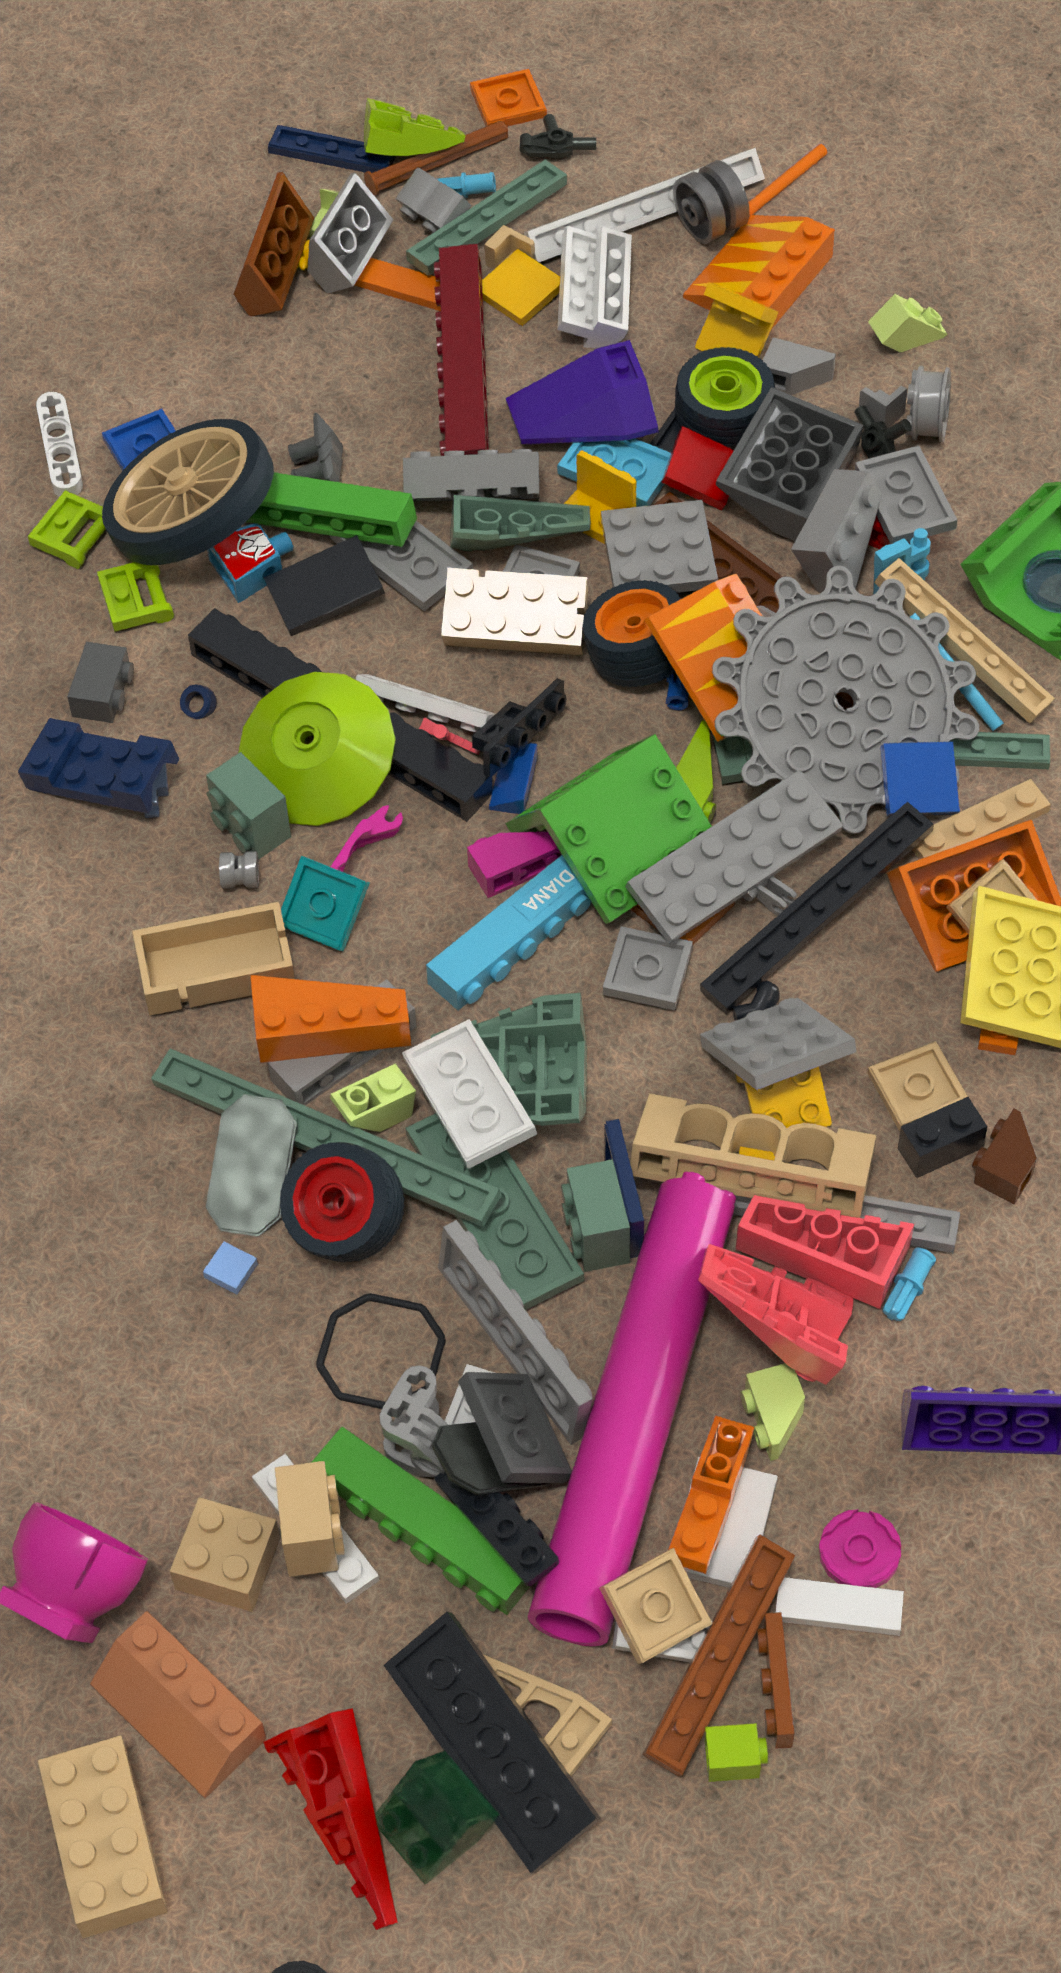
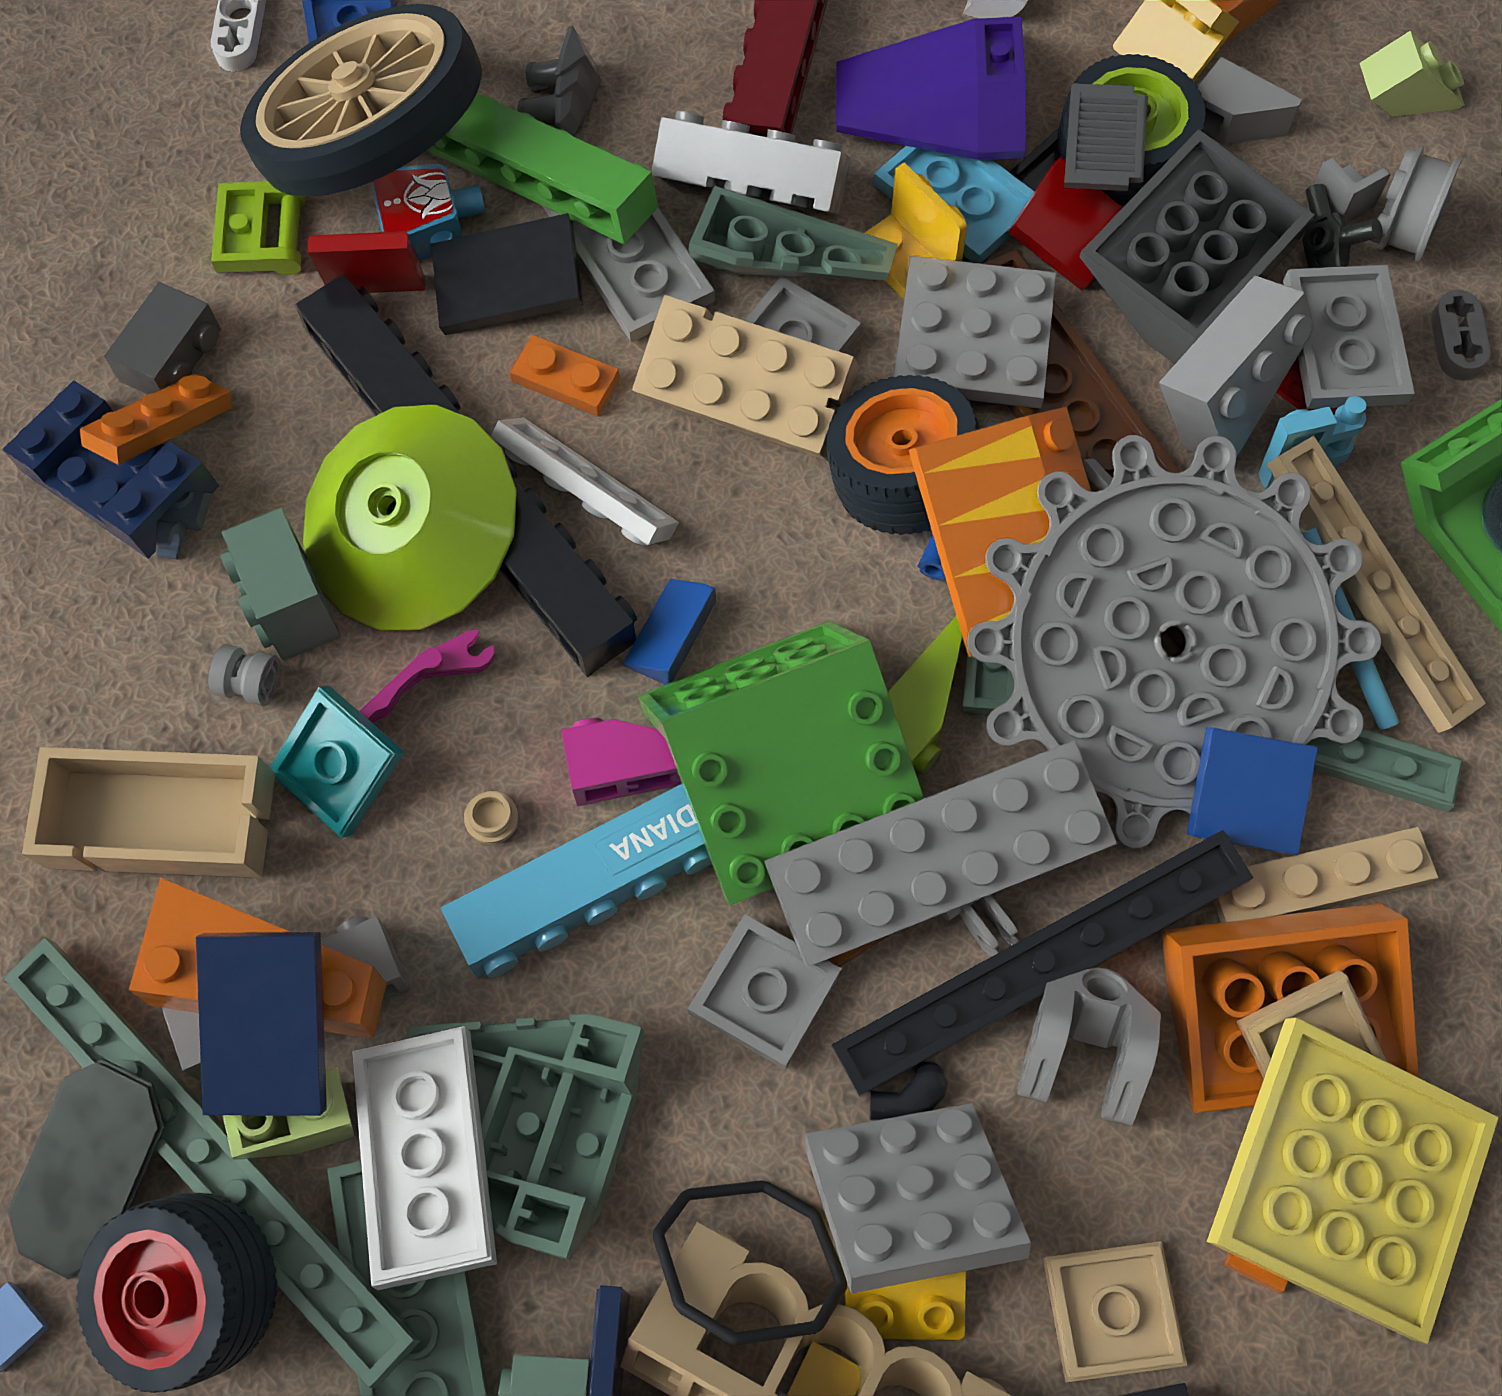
camera: 15 degrees right, 10 degrees up
(62, 525) = (201, 108): lime plate -> none
(120, 726) = (155, 418): none -> orange plate
(209, 698) = (301, 401): dark blue piece -> none
(232, 594) = (368, 260): none -> red tile
(349, 1032) = (261, 1023): none -> dark blue tile
(385, 641) = (564, 375): none -> orange plate
(434, 915) = (491, 817): none -> tan plate
(443, 733) = (591, 533): coral piece -> none
(515, 726) = (690, 554): black bracket -> none
(684, 1127) = (711, 1324): none -> black piece
(710, 405) = (1105, 137): none -> dark grey window
(861, 924) = (1104, 1012): none -> light grey piece
(989, 479) = (1450, 335): none -> flat silver beam

